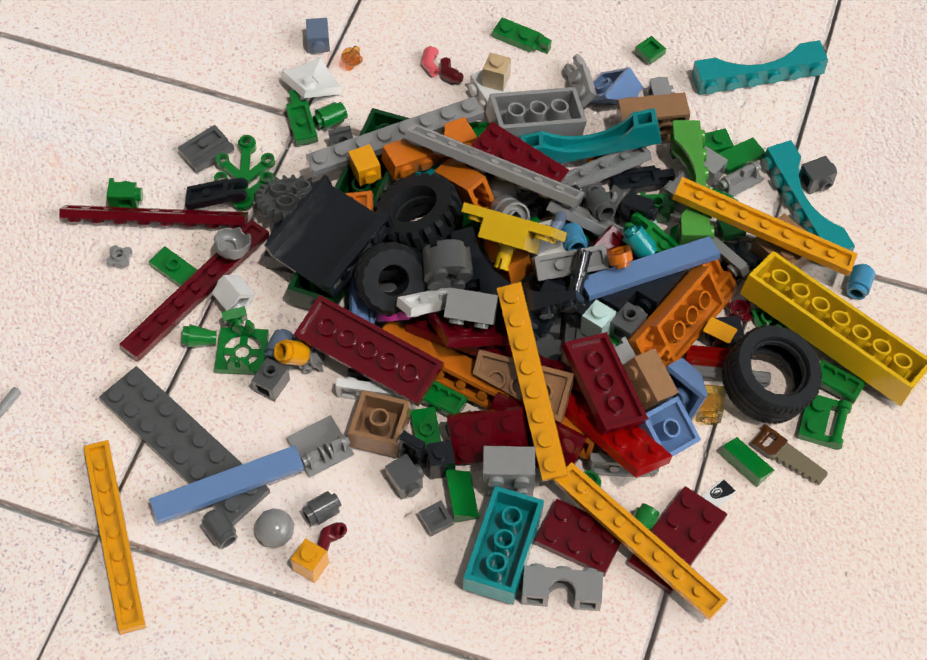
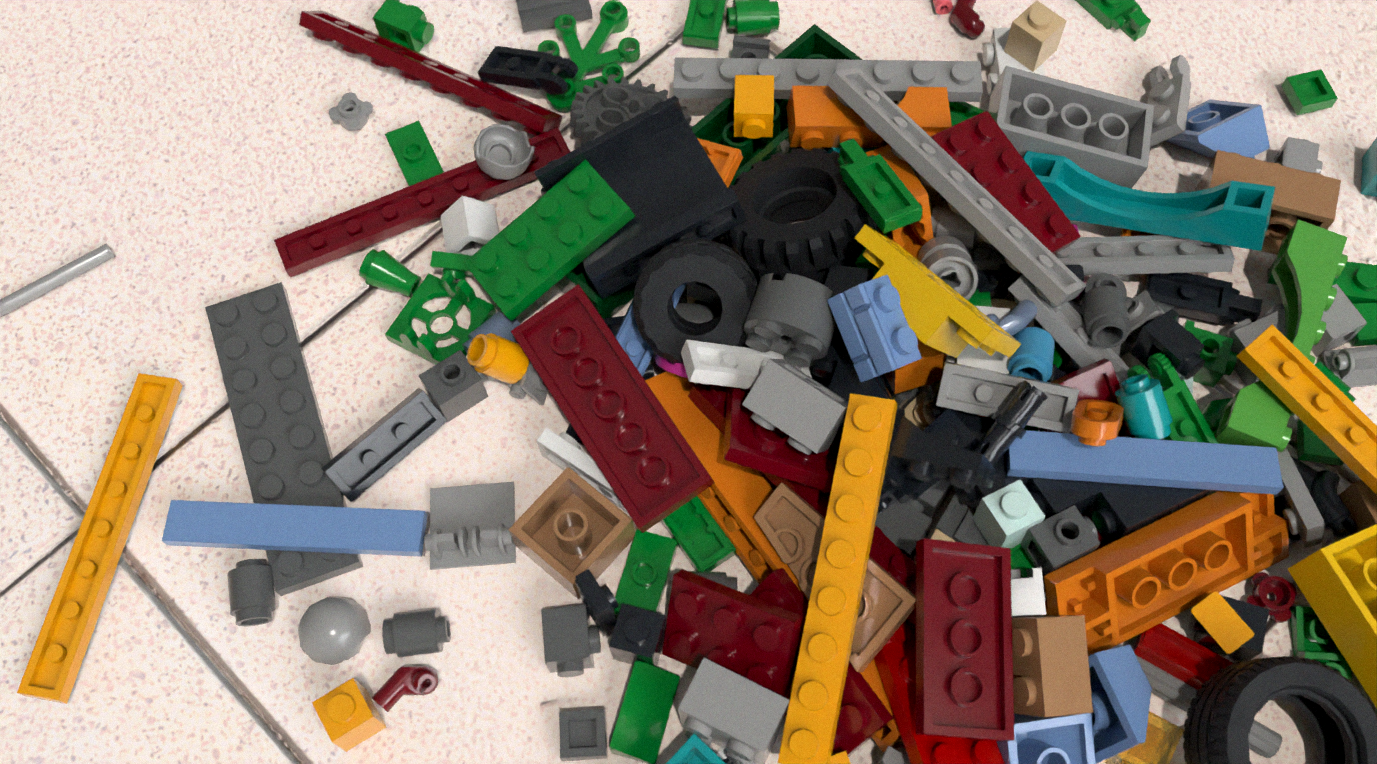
camera: 30 degrees right, 5 degrees up
(249, 424) = (384, 444): none -> plate
(288, 279) = (549, 240): none -> green plate
(457, 182) = (877, 188): none -> green hinge
(493, 251) = (874, 328): none -> medium blue brick

